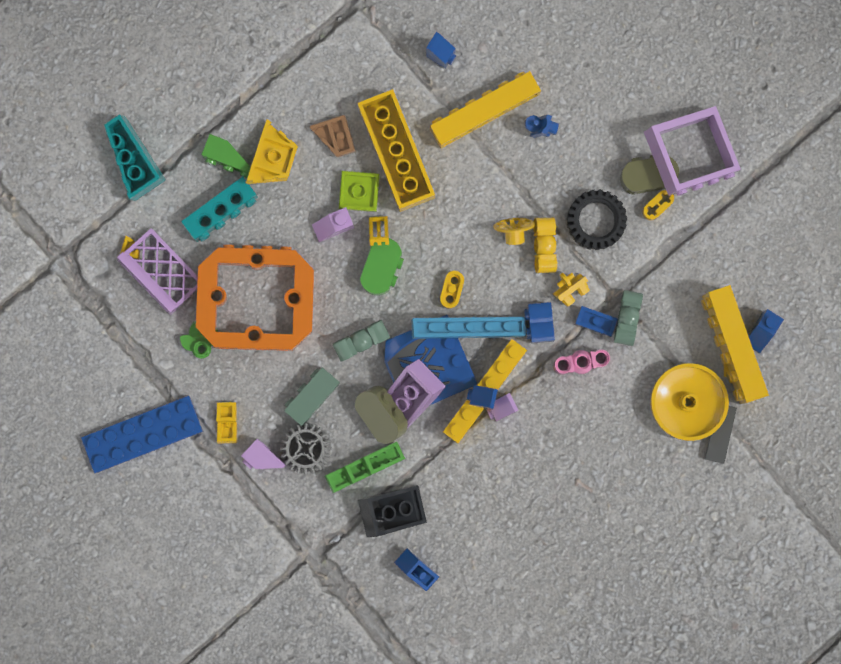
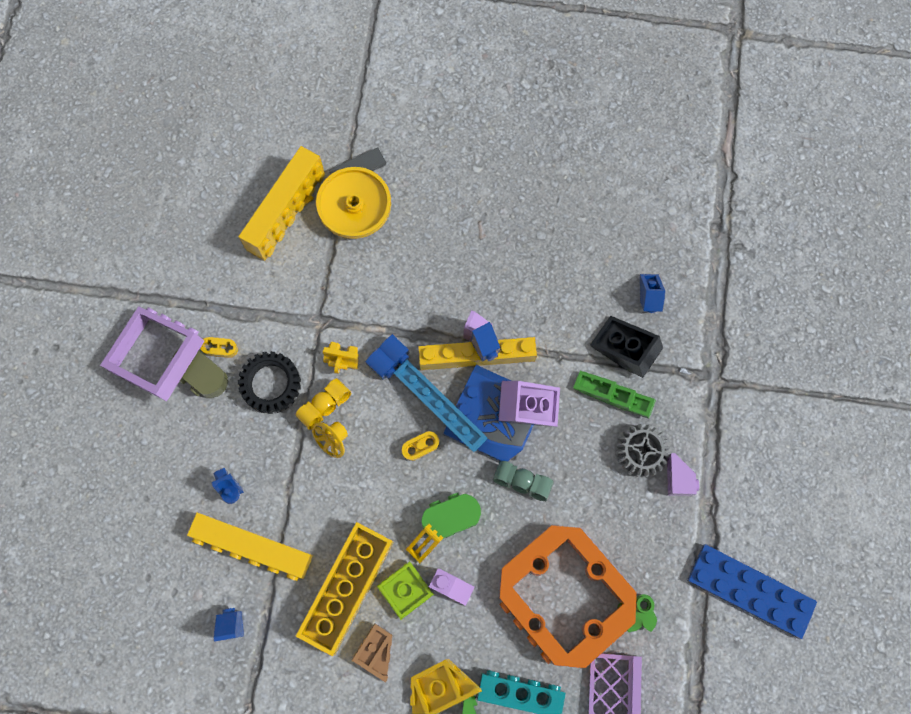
camera: 135 degrees left, 10 degrees down
(226, 422) = (680, 531): yellow slope -> none
(311, 396) = (600, 481): sand green brick -> none
(381, 414) = (565, 414): olive brick -> none
(590, 358) = (387, 295): bright pink piece -> none
(596, 321) = (350, 318): blue plate -> none
(628, 318) = (327, 296): sand green piece -> none
(764, 330) = (250, 194): blue slope -> none

